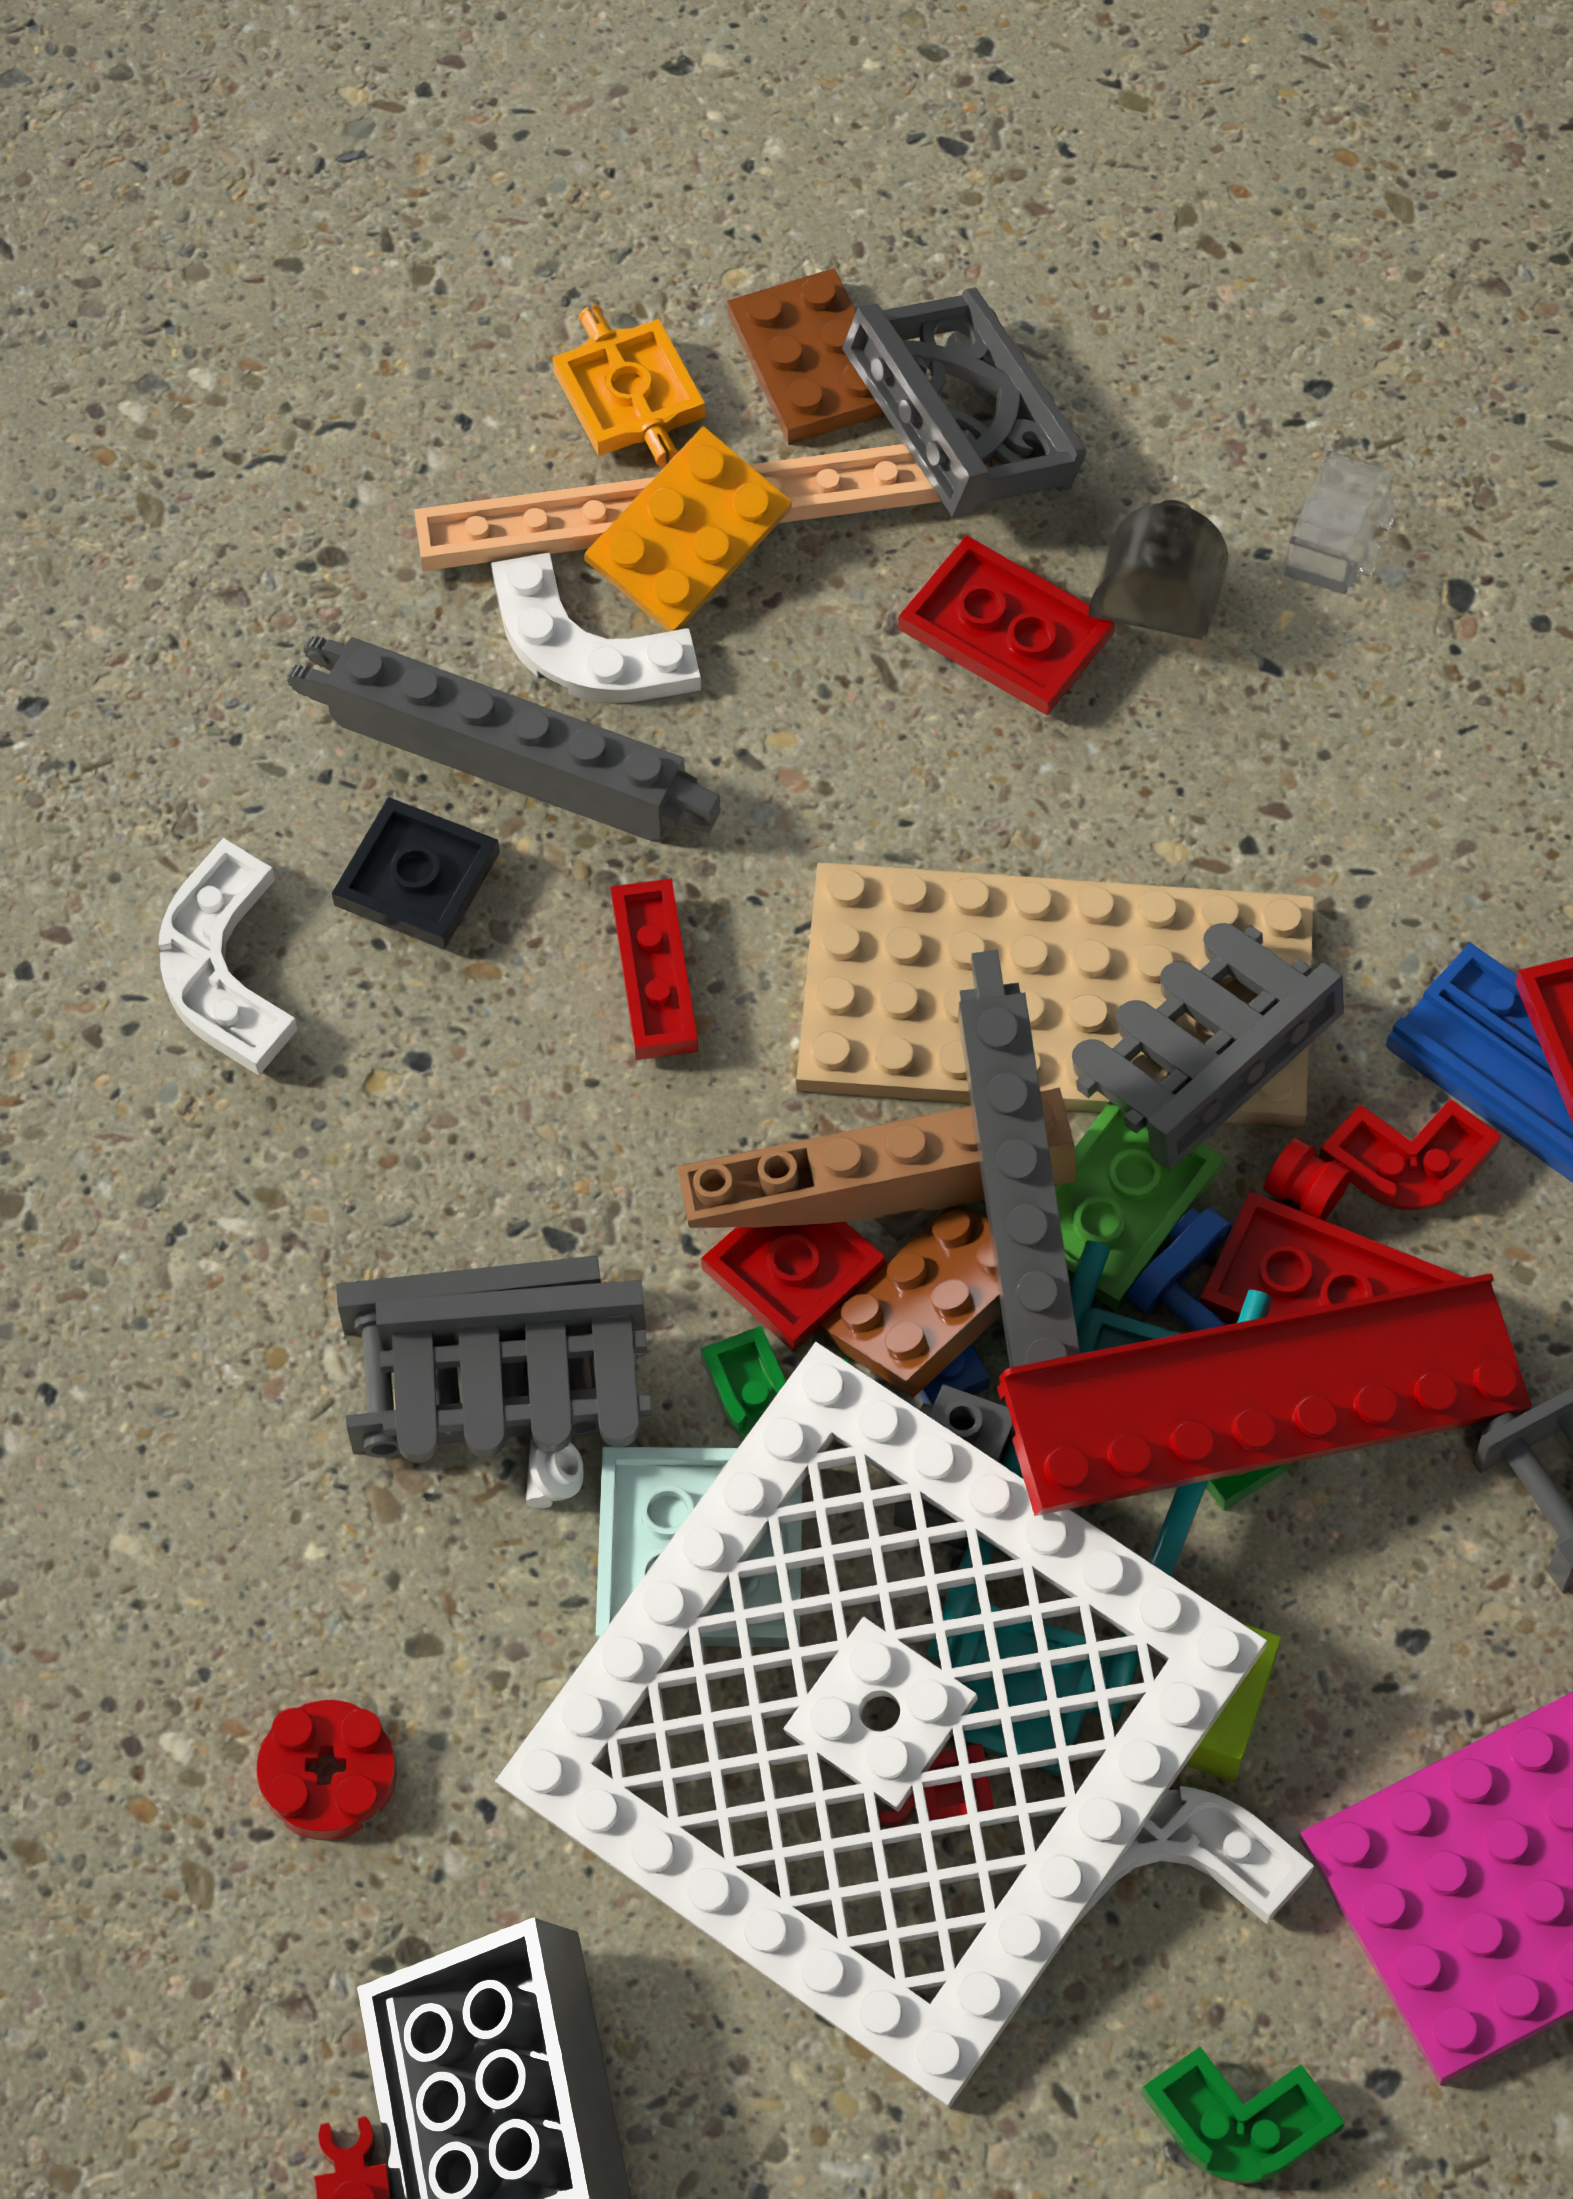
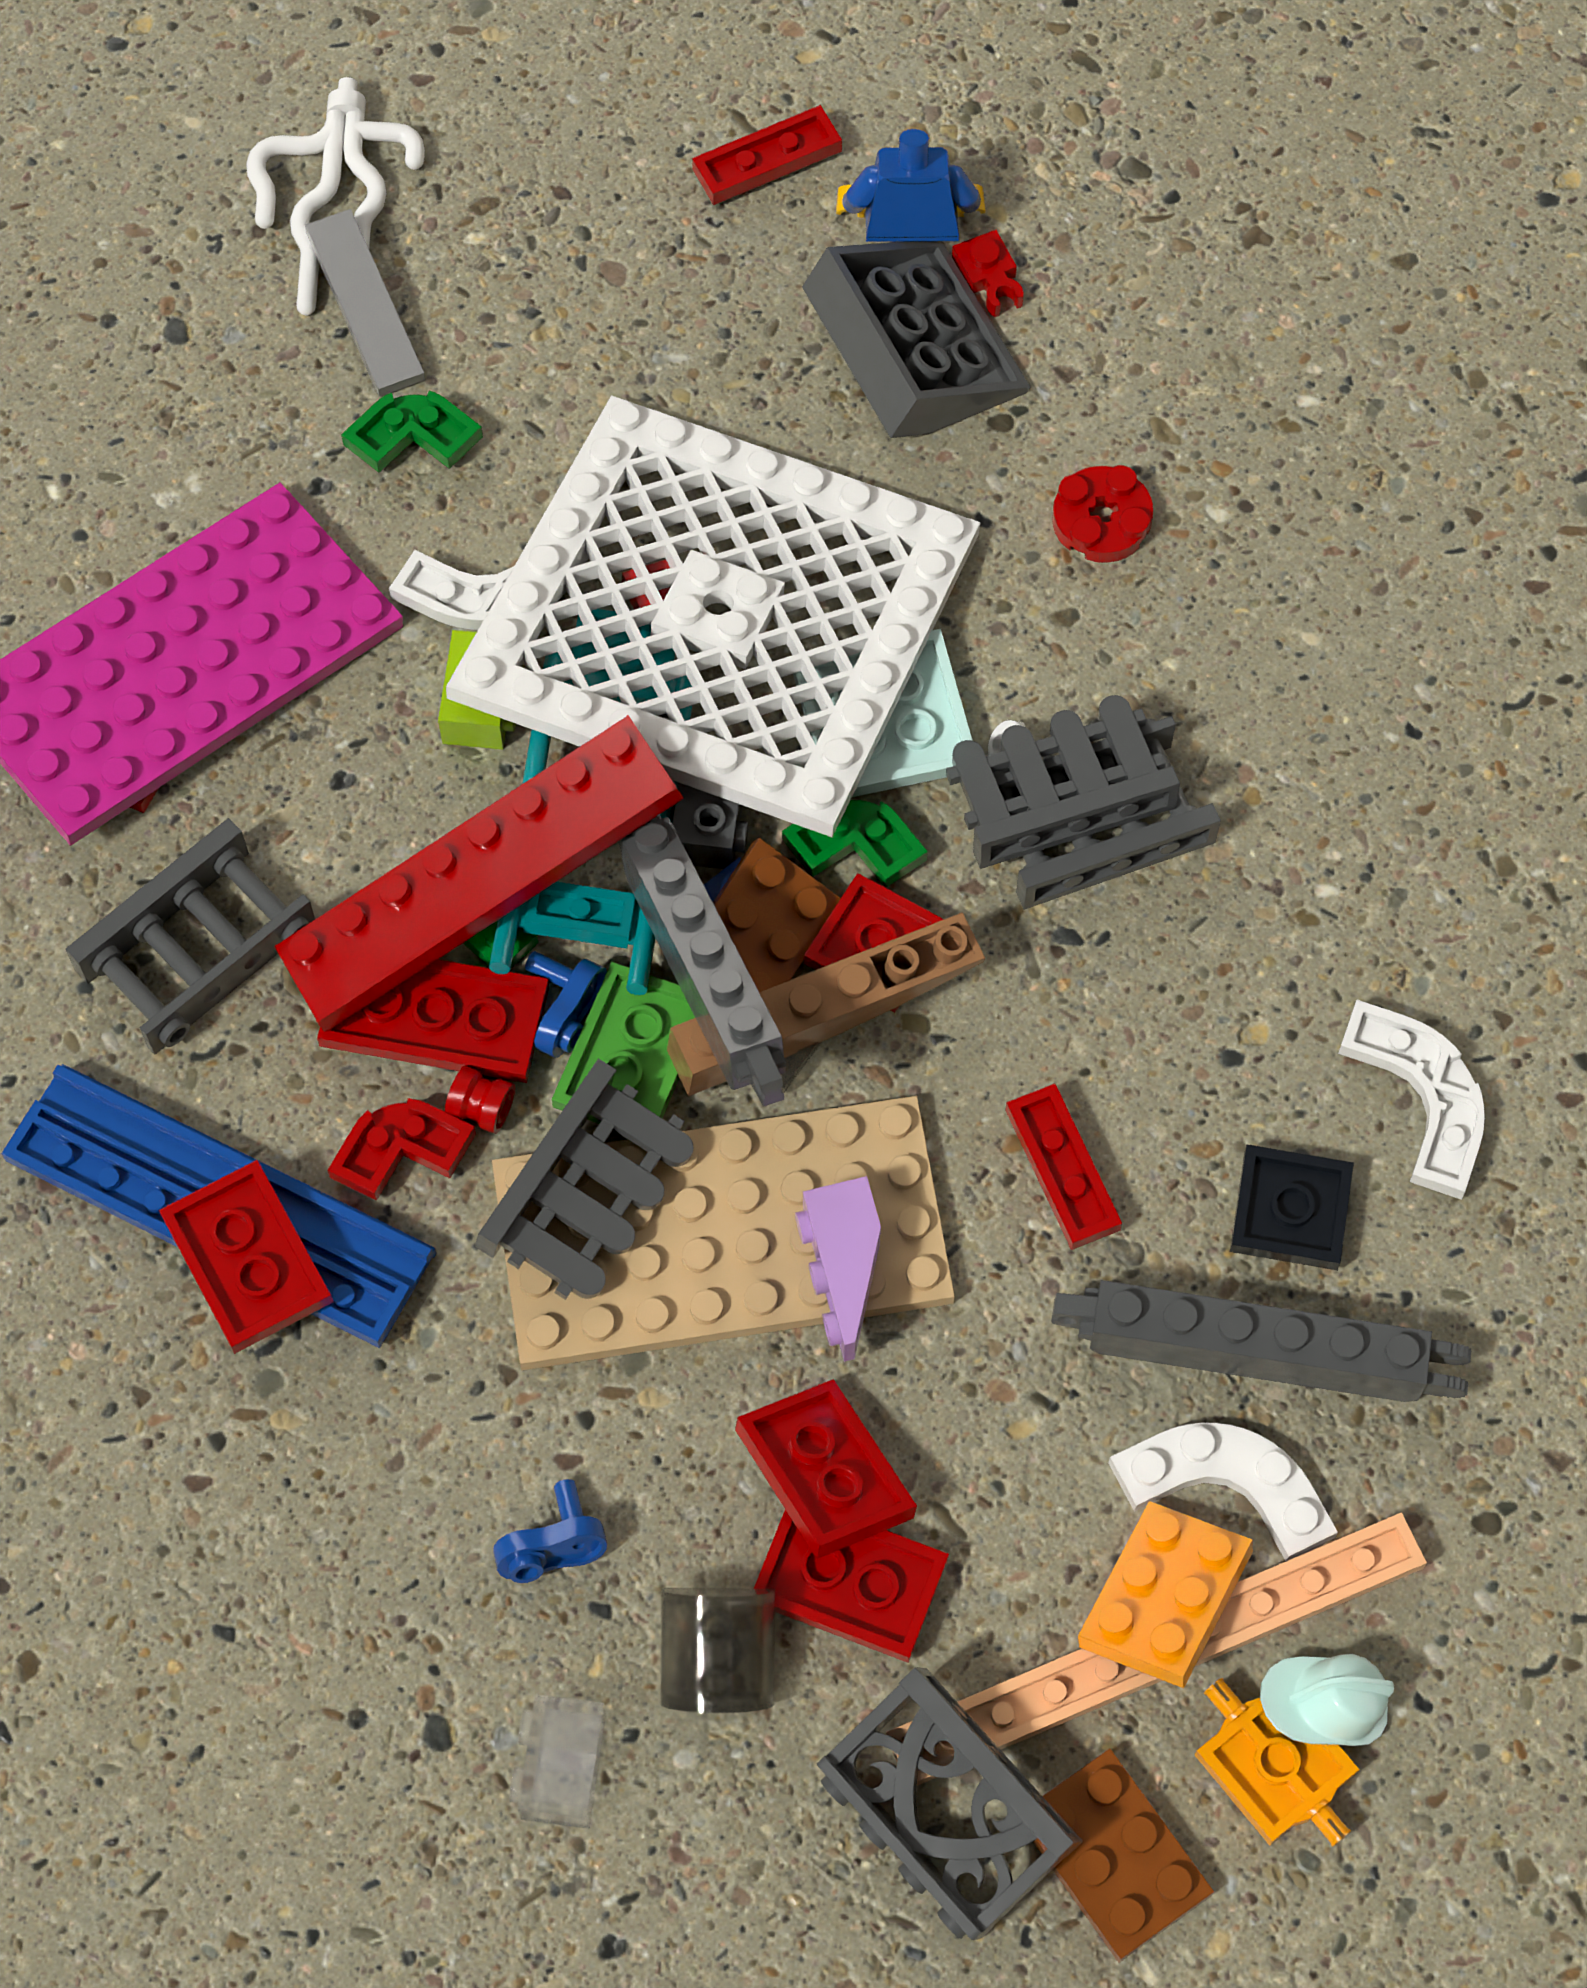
camera: 165 degrees right, 5 degrees up
(559, 418) = (1327, 1699): none -> light aqua piece
(927, 892) = (846, 1244): none -> lavender slope
(1007, 709) = (825, 1468): none -> red plate
(1285, 710) = (569, 1543): none -> blue piece

